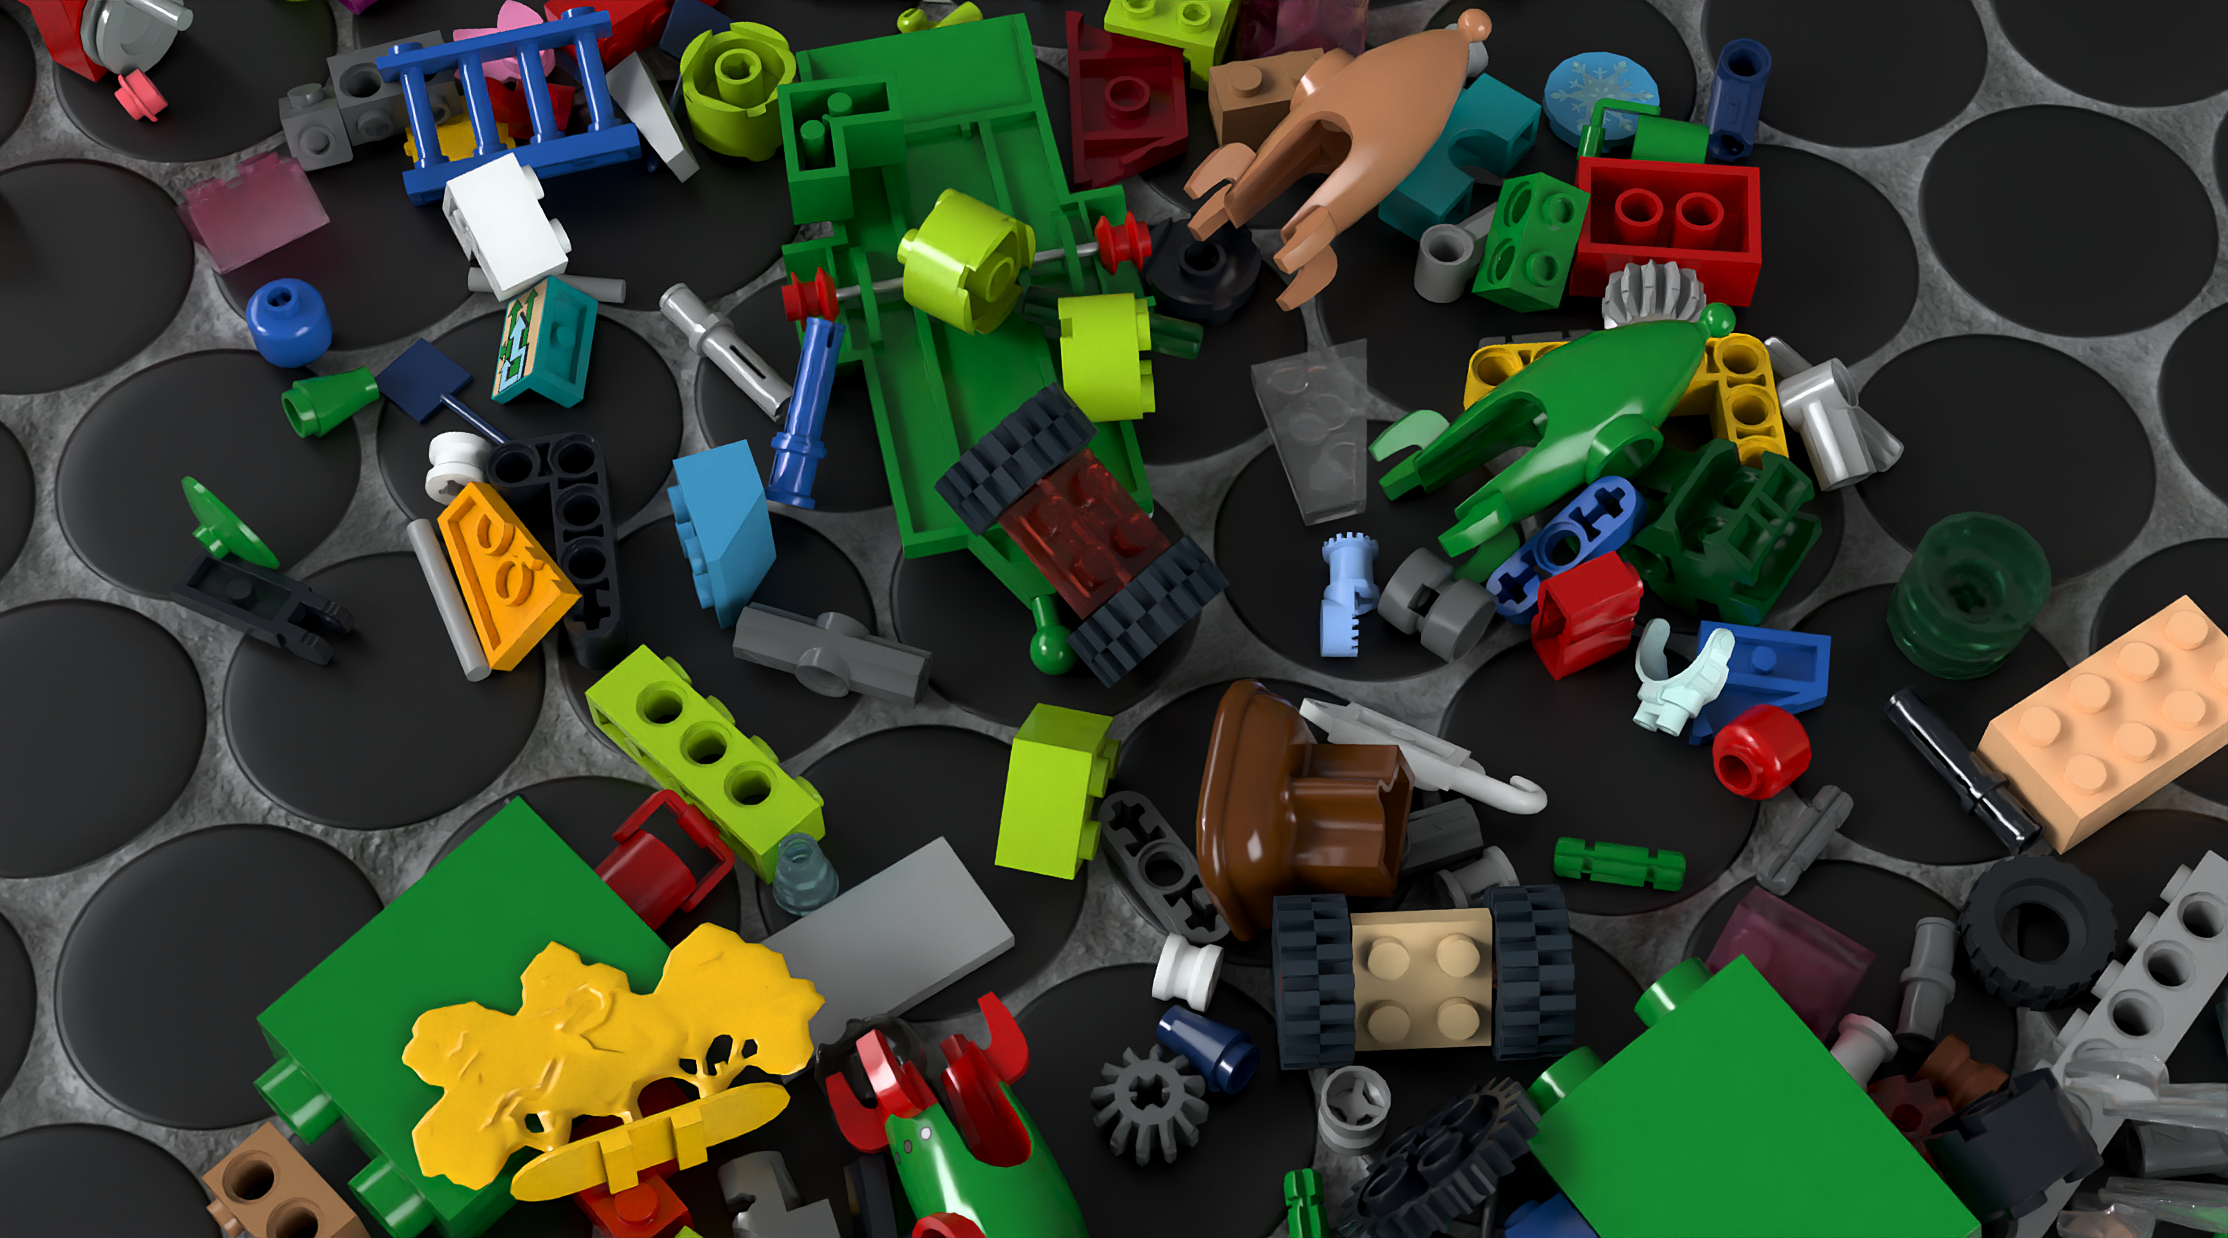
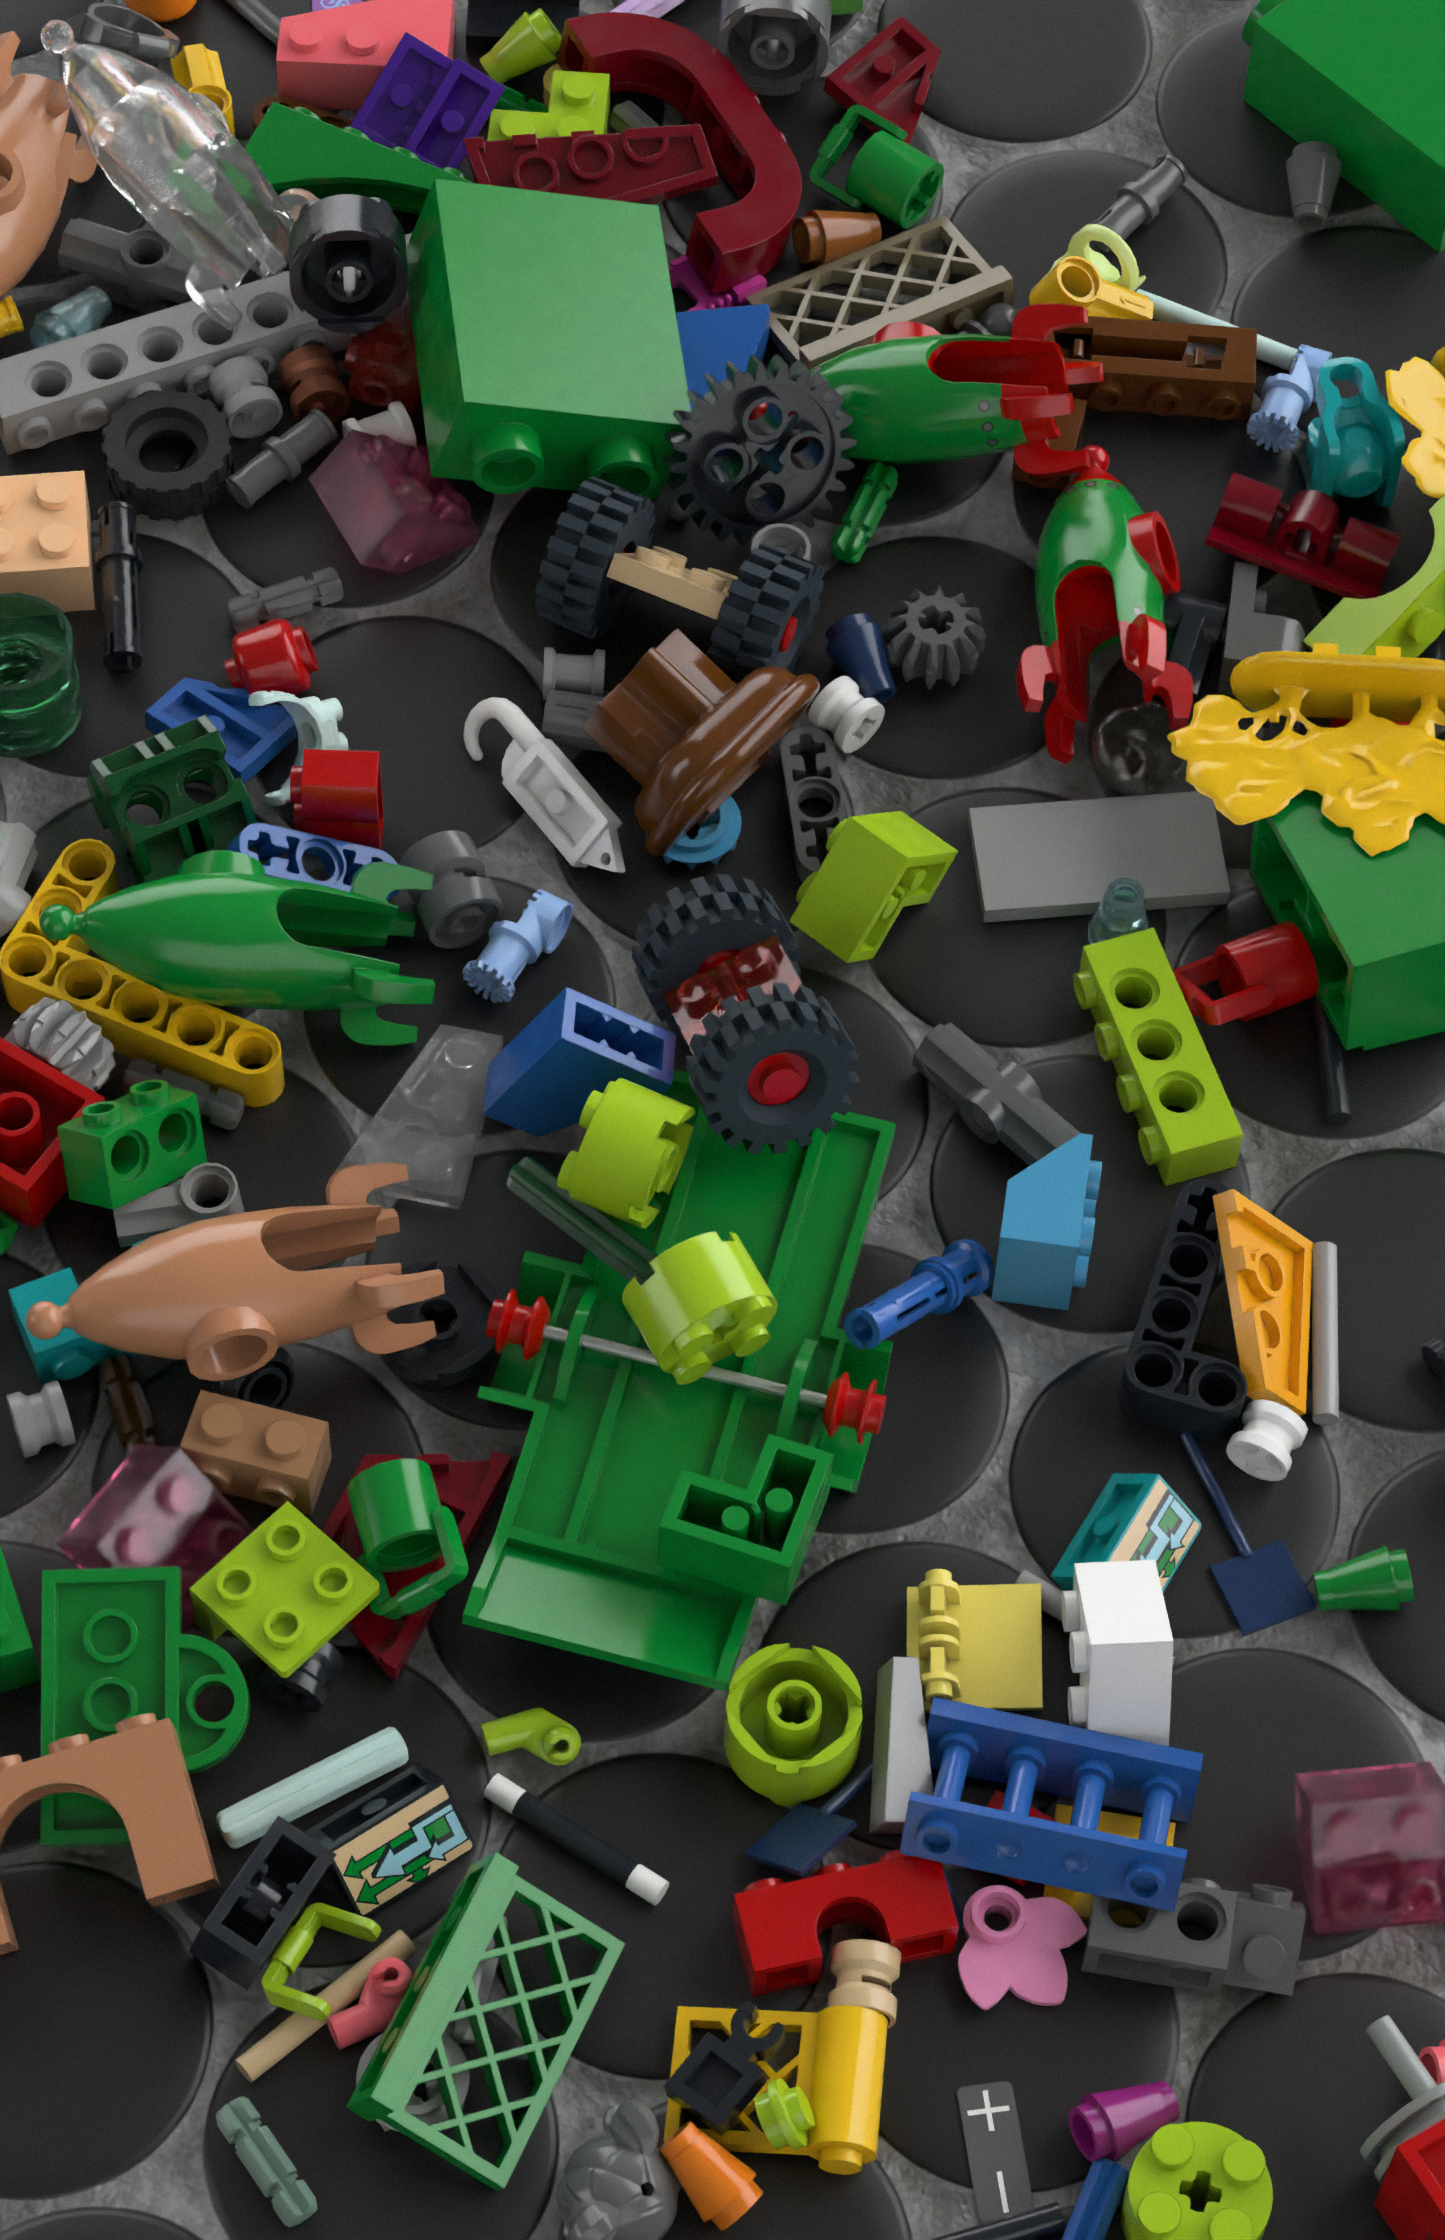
camera: 155 degrees left, 0 degrees up
(289, 322) = (1378, 1672): blue head -> none
(633, 218) = (977, 1642): none -> light yellow hinge
(714, 337) = (954, 1472): light grey pin -> none
(1111, 64) = (405, 1529): none -> green piece
(1206, 460) = (569, 1053): none -> blue slope
(1619, 864) = (445, 649): green axle -> none
(2029, 1041) = (242, 388): none -> light grey wheel

